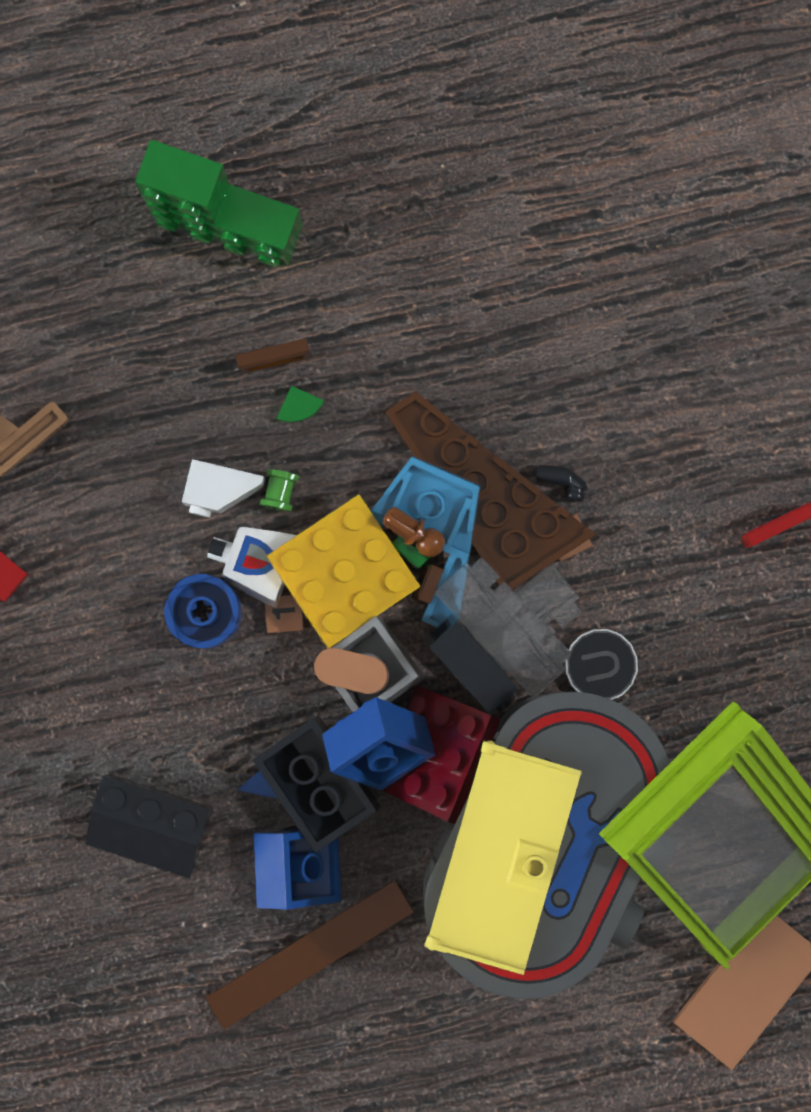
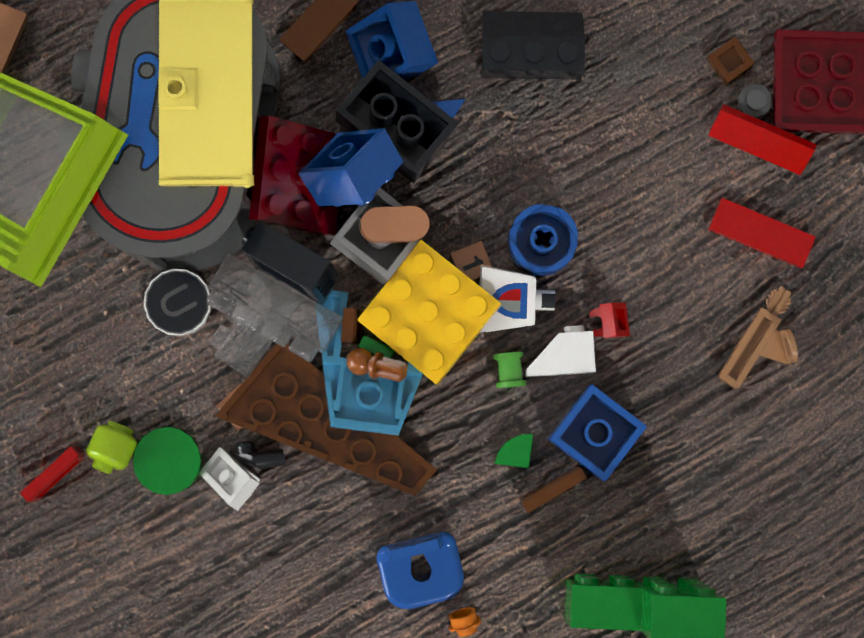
camera: 165 degrees right, 0 degrees up
(156, 508) = (614, 320): none -> red tile
(210, 397) = (597, 432): none -> blue brick
(404, 253) = (464, 621): none -> orange plate
(406, 321) = (446, 570): none -> blue piece
(599, 465) = (229, 478): none -> white slope
(658, 505) = (167, 460): none -> green tile
(711, 534) = (111, 447): none -> lime head

